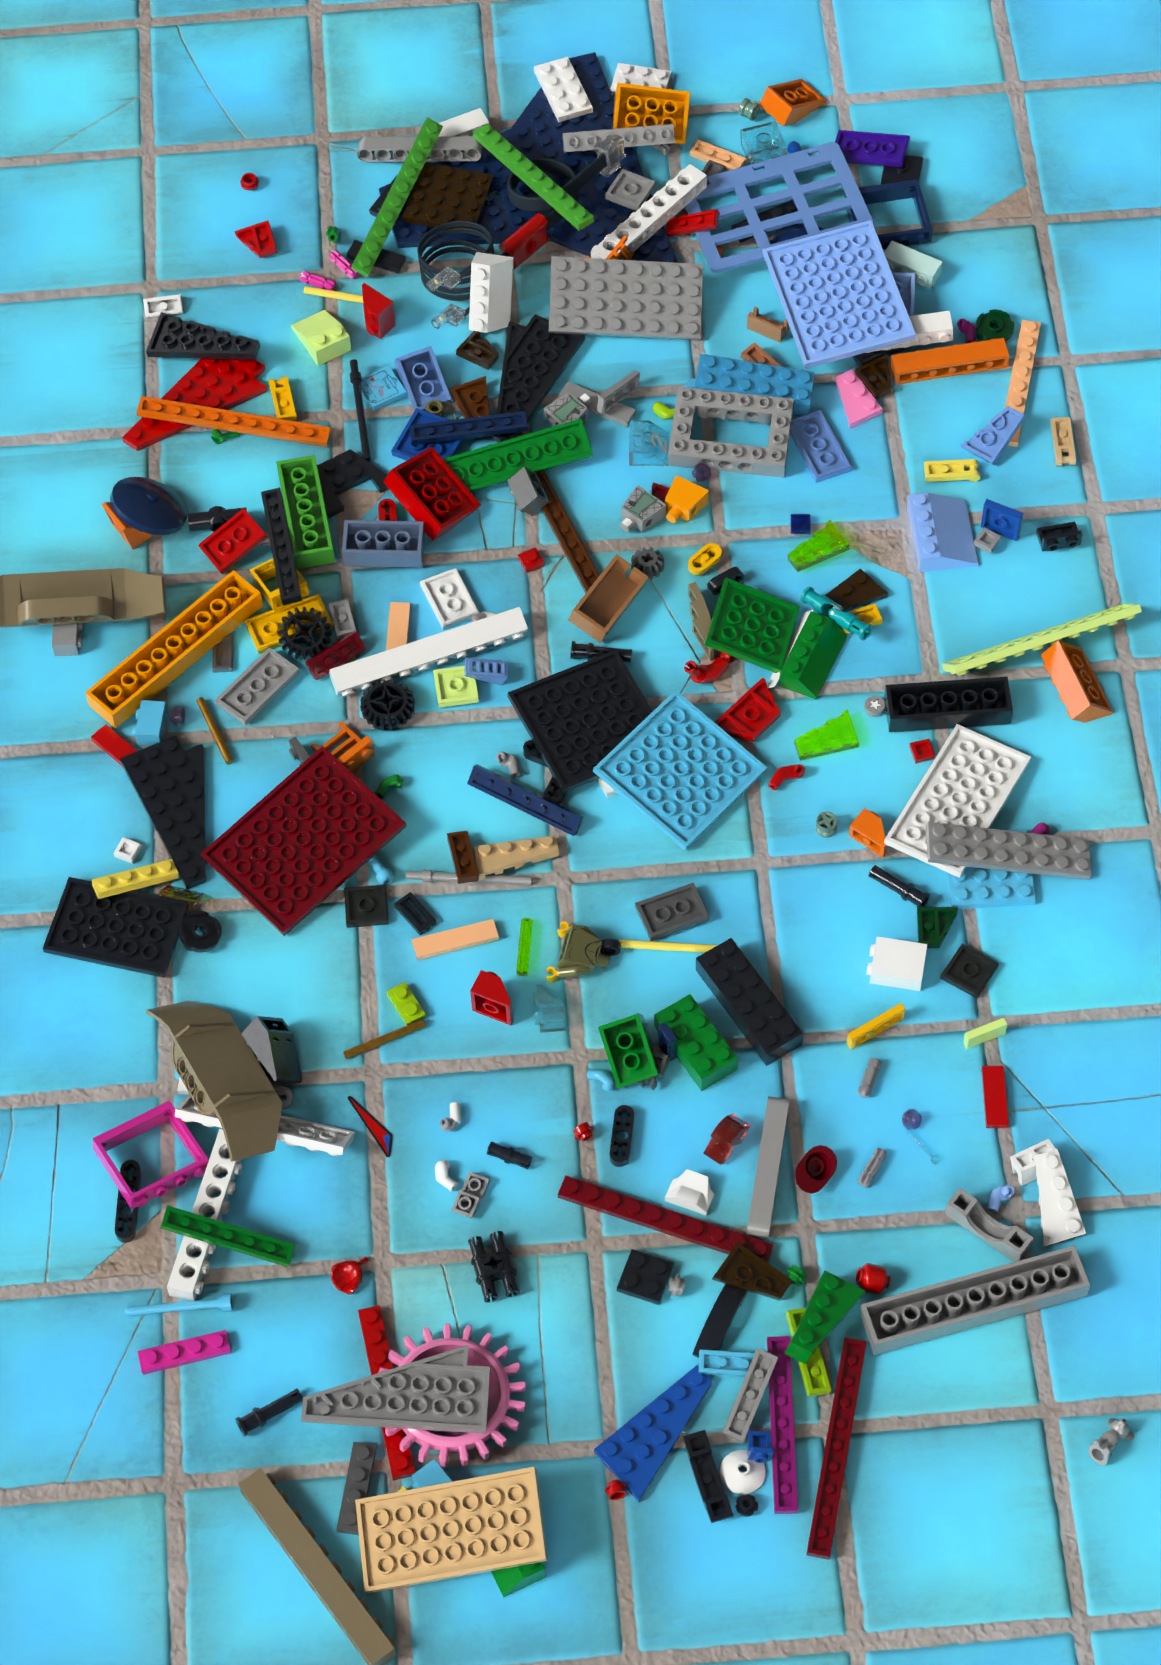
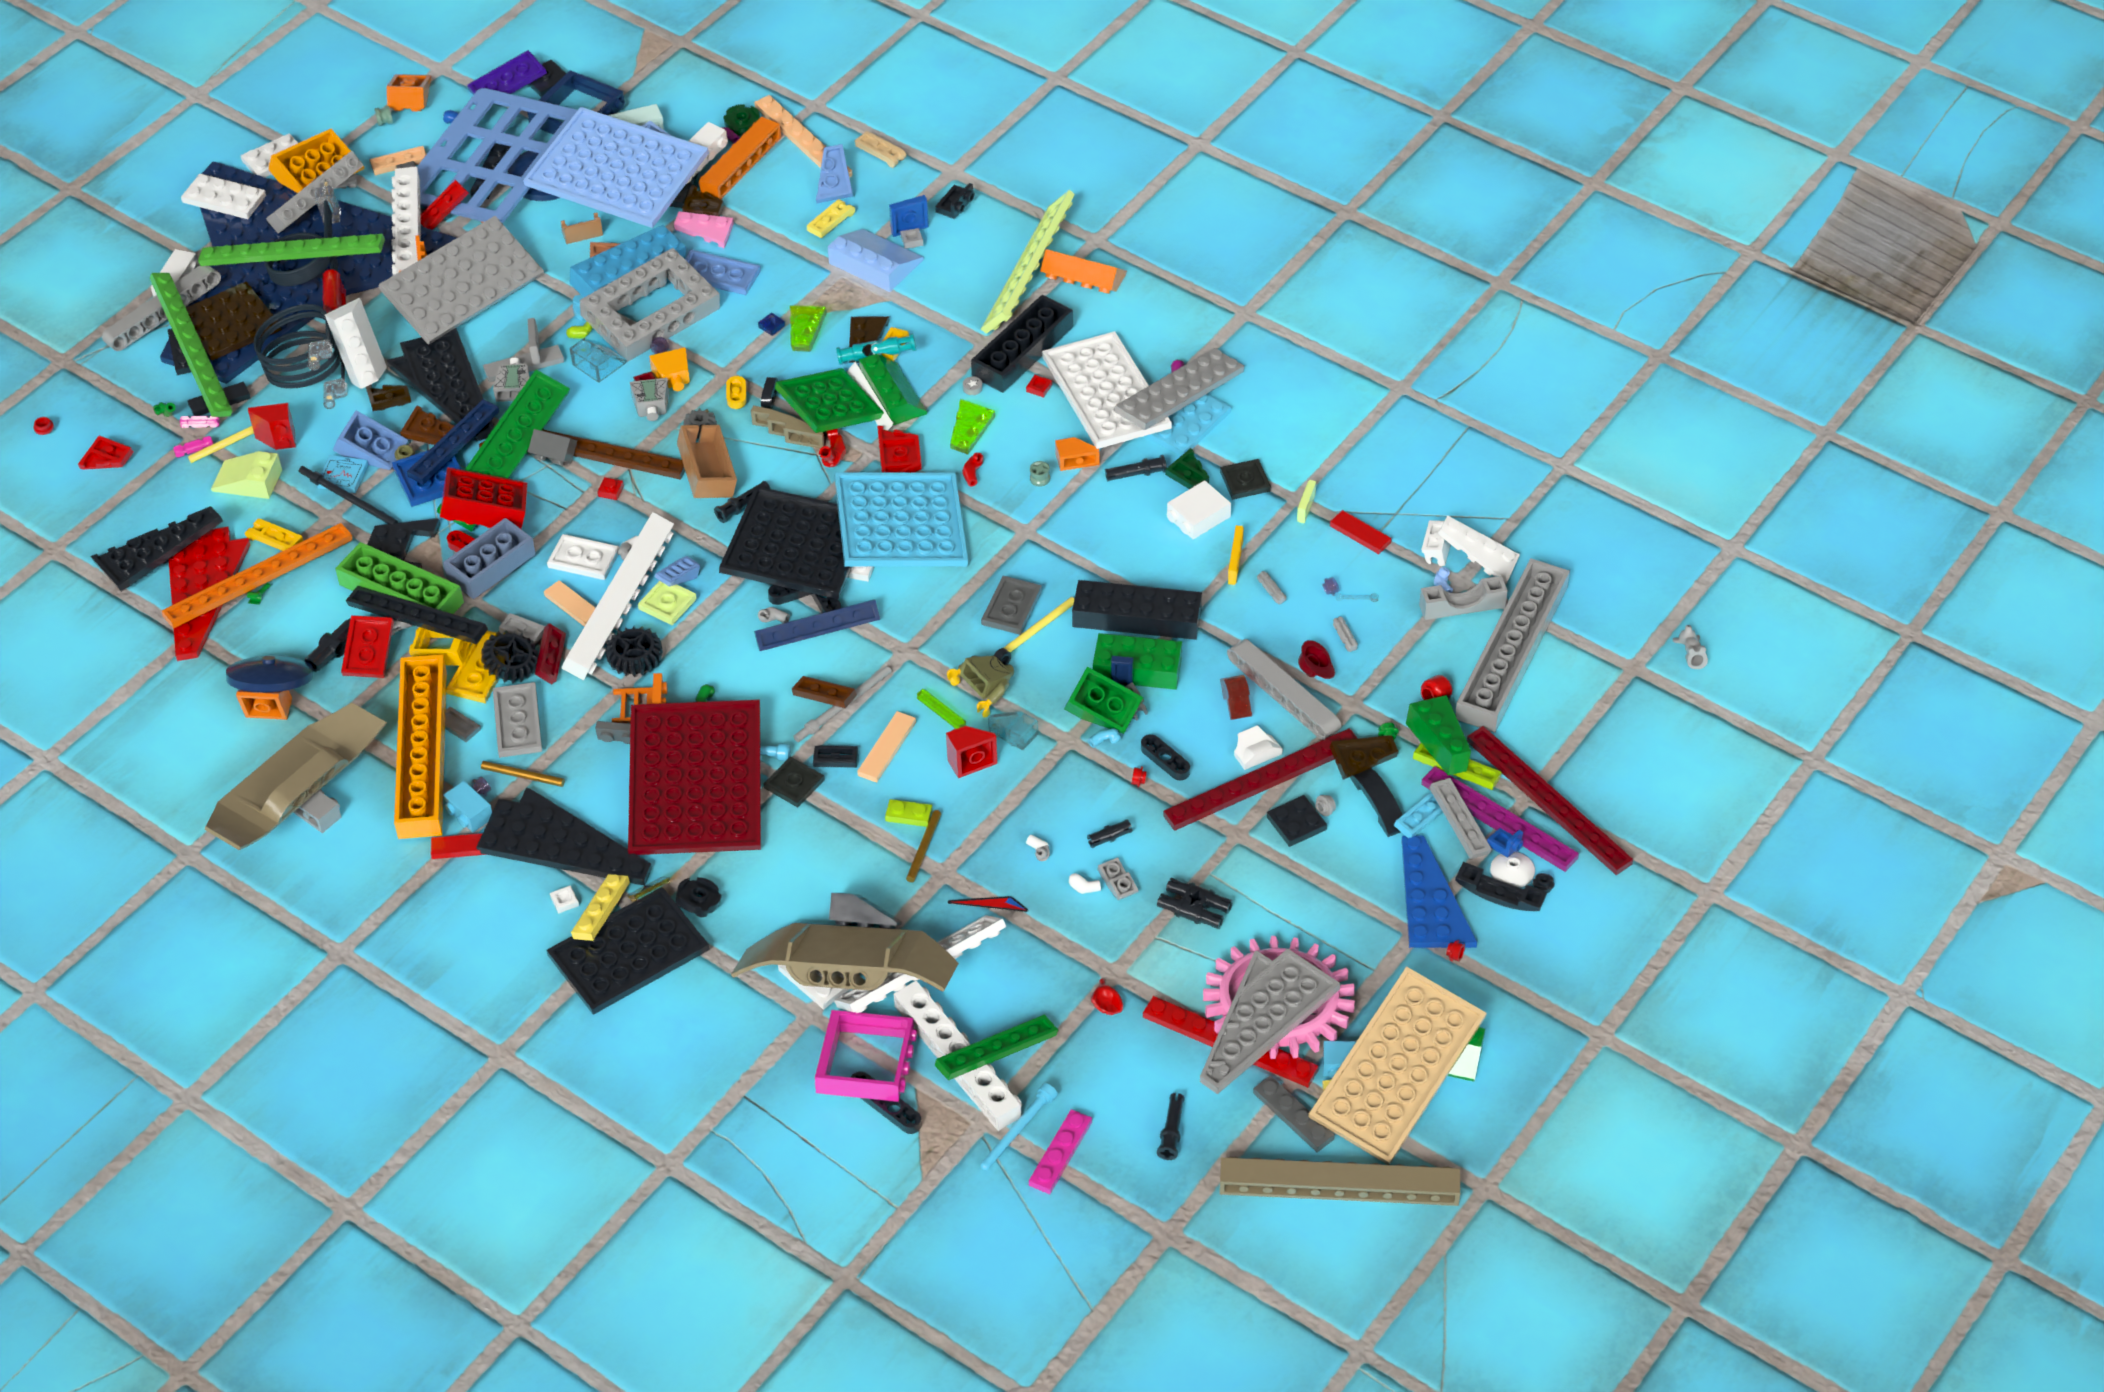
camera: 50 degrees left, 10 degrees down
(166, 304) = (80, 555): white slope -> none
(504, 855) = (857, 660): tan wing -> none
(630, 190) = (367, 218): light grey plate -> none
(762, 142) = (426, 125): clear light blue brick -> none

